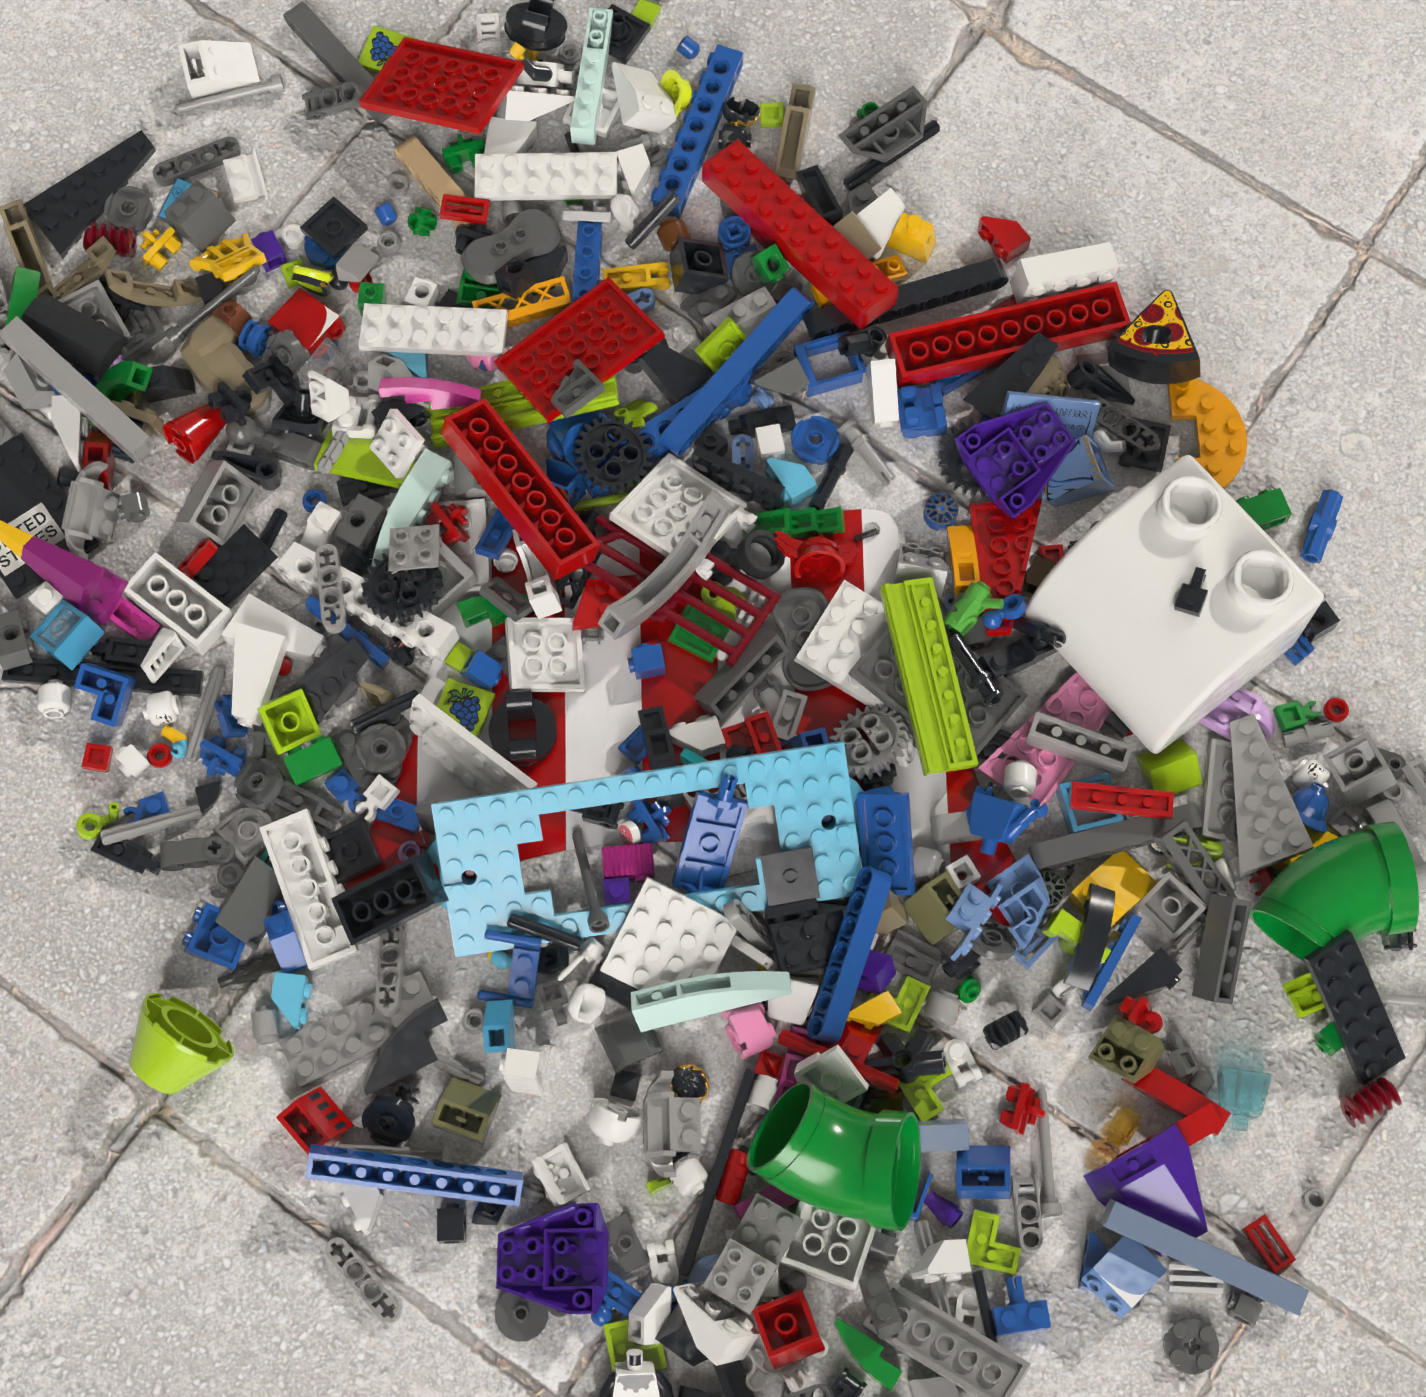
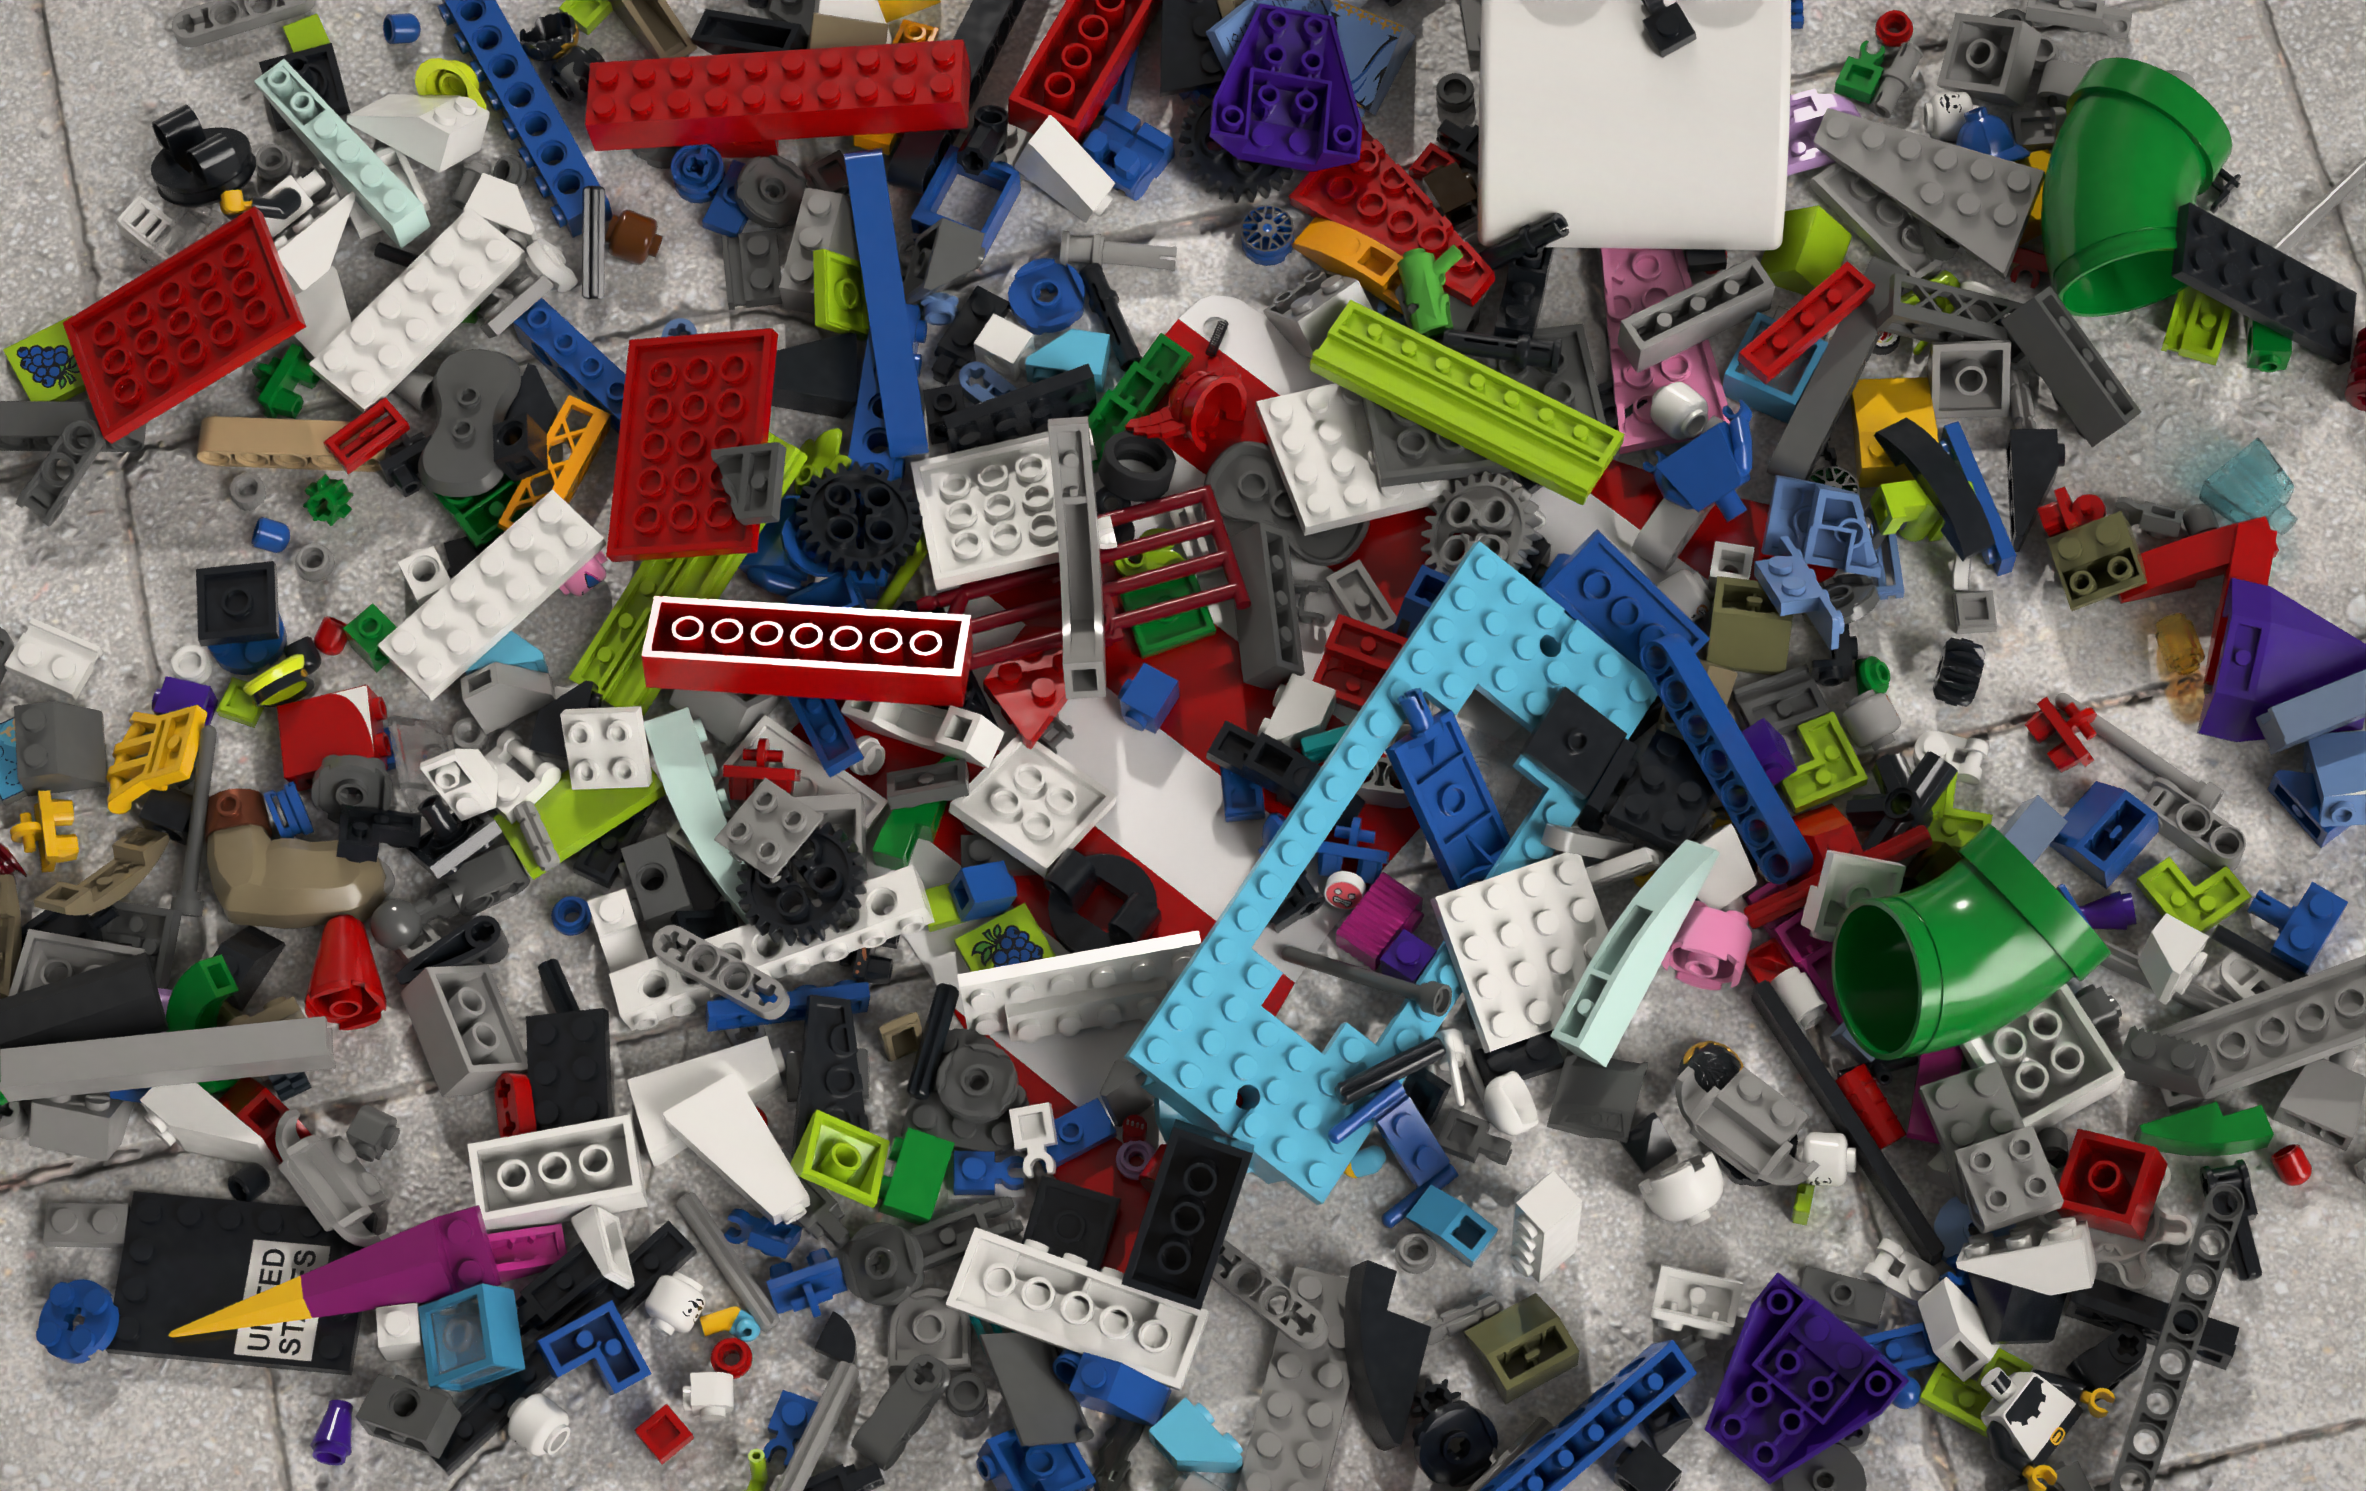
camera: 45 degrees left, 5 degrees down
(232, 402) = (362, 898): black hips -> none
(355, 263) = (311, 616): light grey slope -> none
(439, 392) = (584, 650): dark pink slope -> none
(639, 276) = (645, 318): yellow plate -> none
(697, 265) = (701, 241): black slope -> none
(737, 750) = (1358, 690): black piece -> none
(760, 263) = (773, 169): green brick -> none
(875, 1011) = (1813, 790): yellow slope -> none
(1013, 608) = (1474, 246): blue plate -> none

